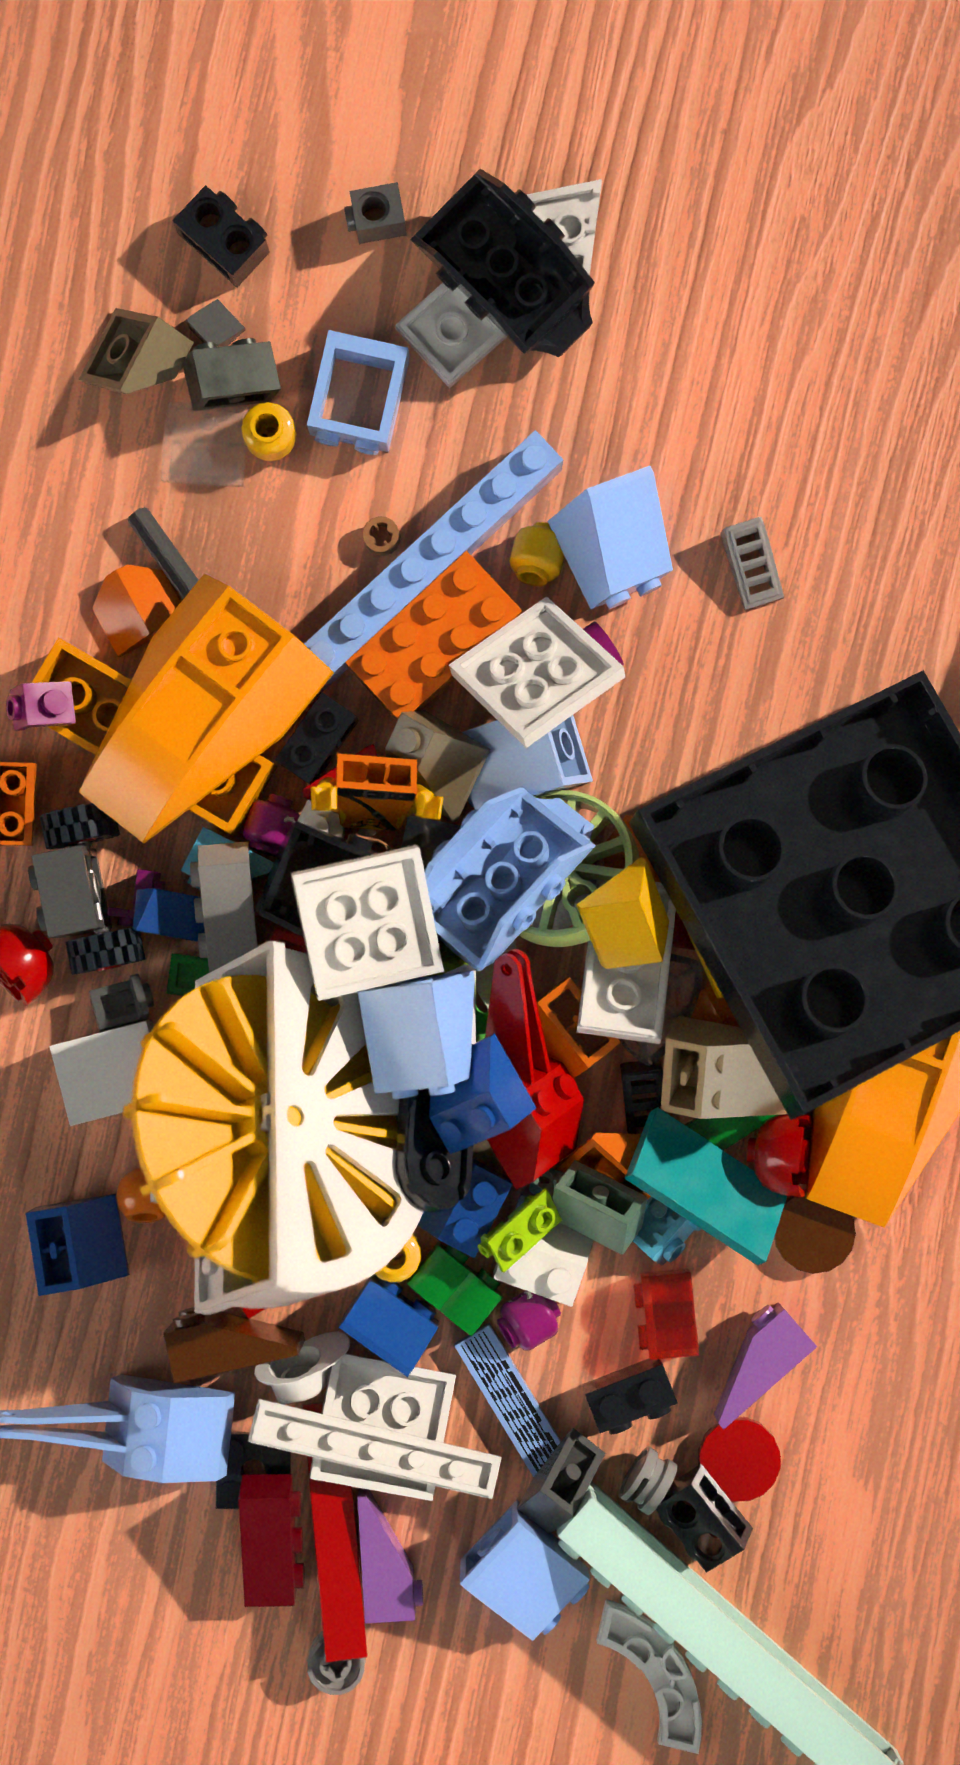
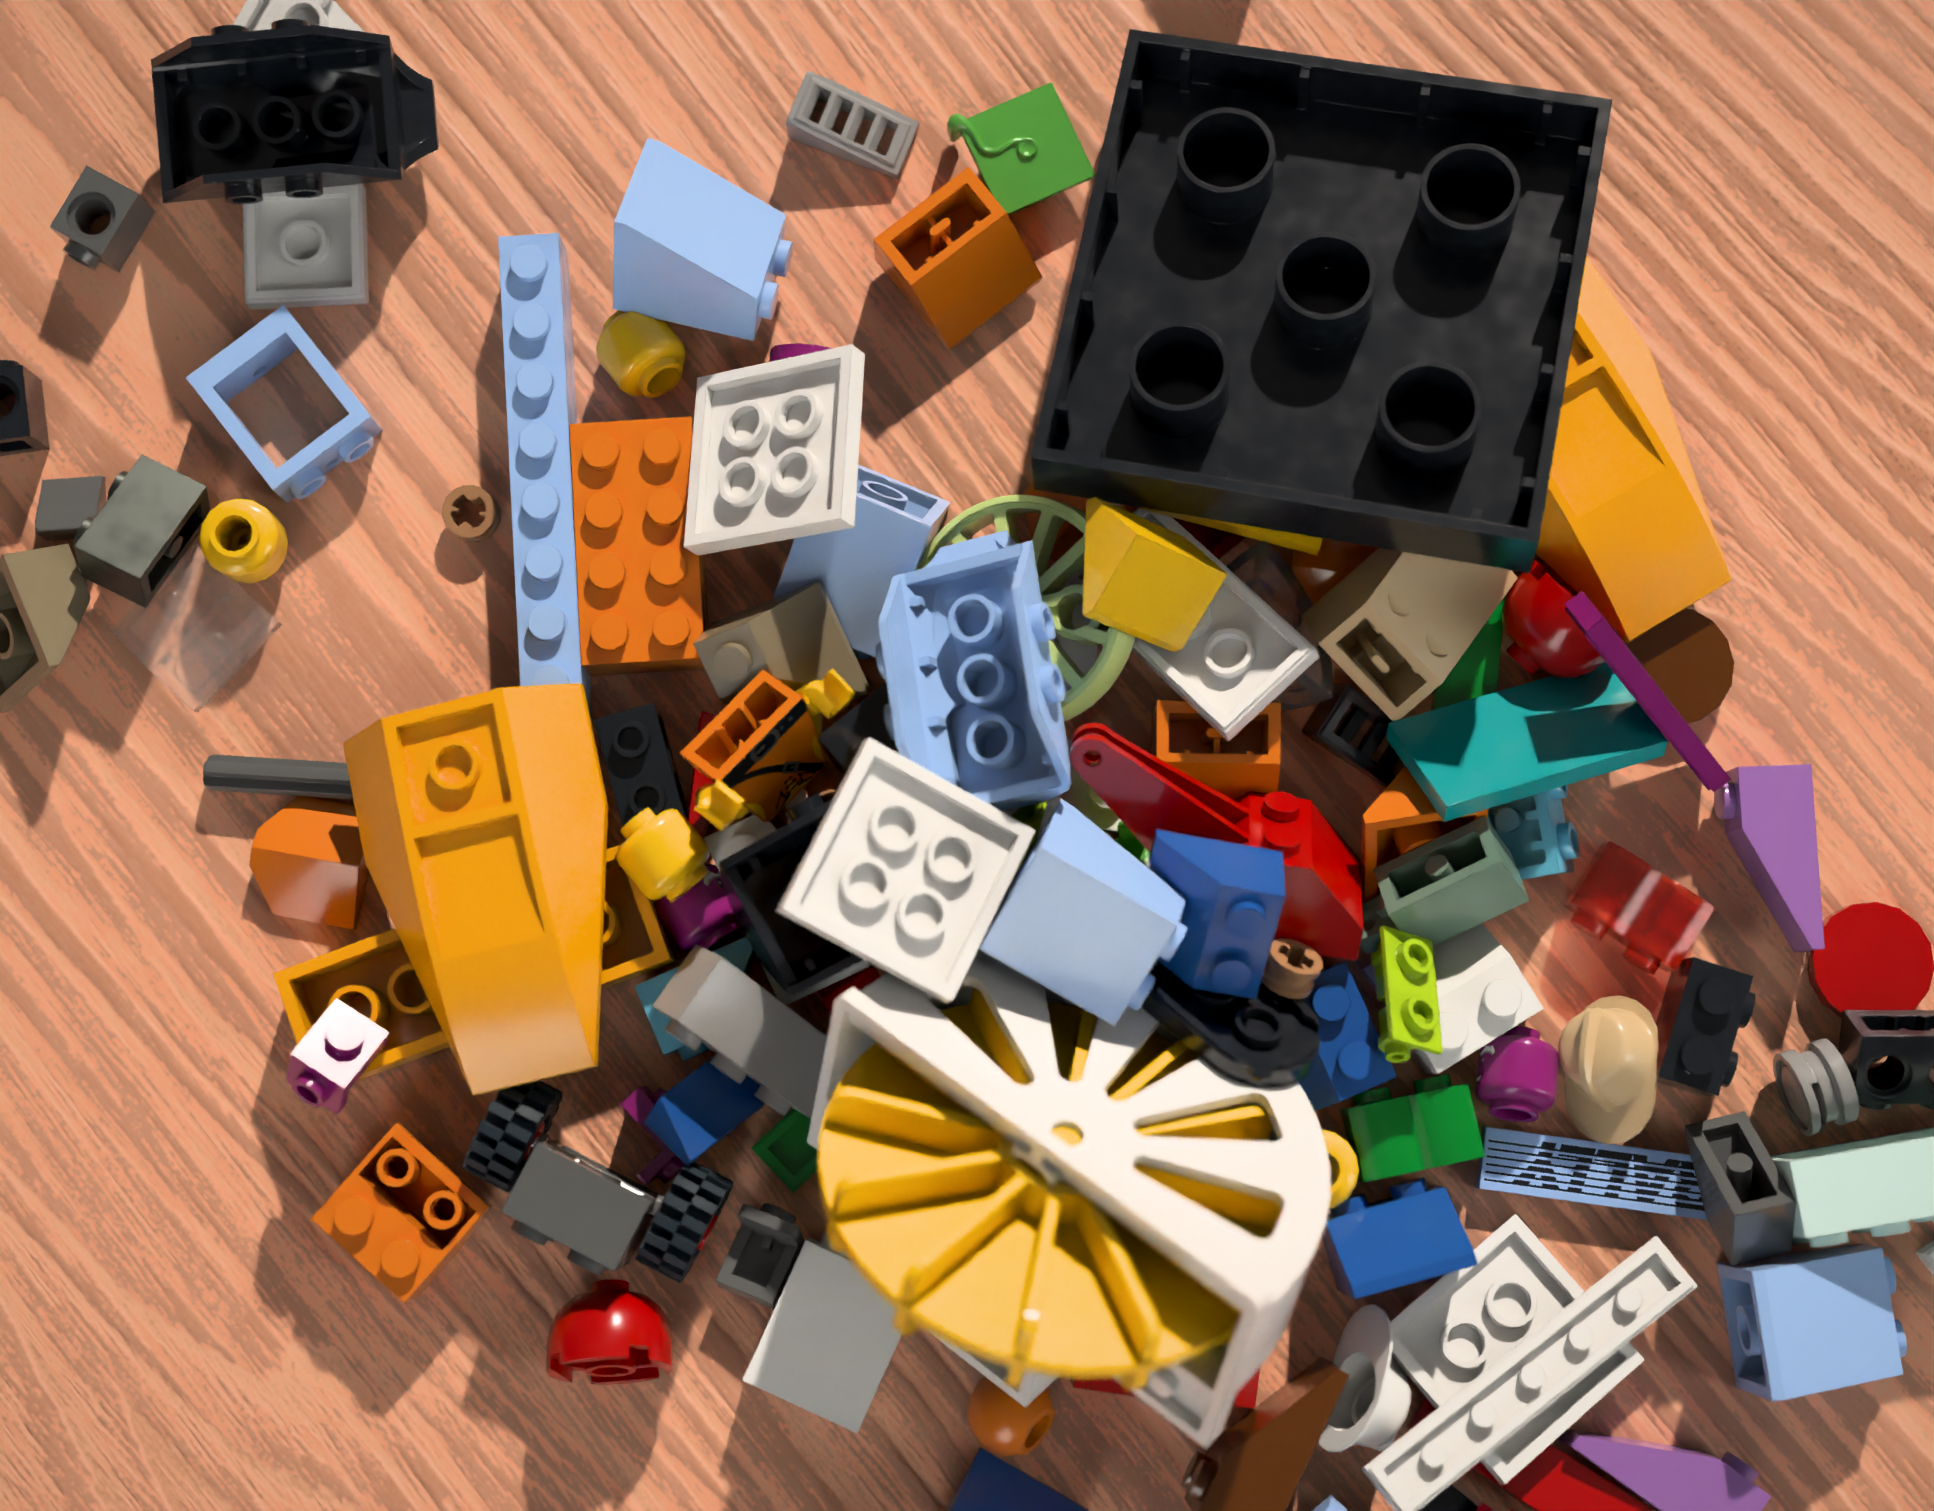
camera: 55 degrees left, 5 degrees down
(280, 786) = (663, 854): none -> yellow head
(483, 1159) = (1291, 968): none -> medium nougat bush
(571, 1365) = (1610, 1068): none -> tan piece
(724, 680) = (957, 258): none -> orange slope
(782, 1230) = (1646, 691): none -> magenta tile
(813, 666) = (1024, 148): none -> bright green hat

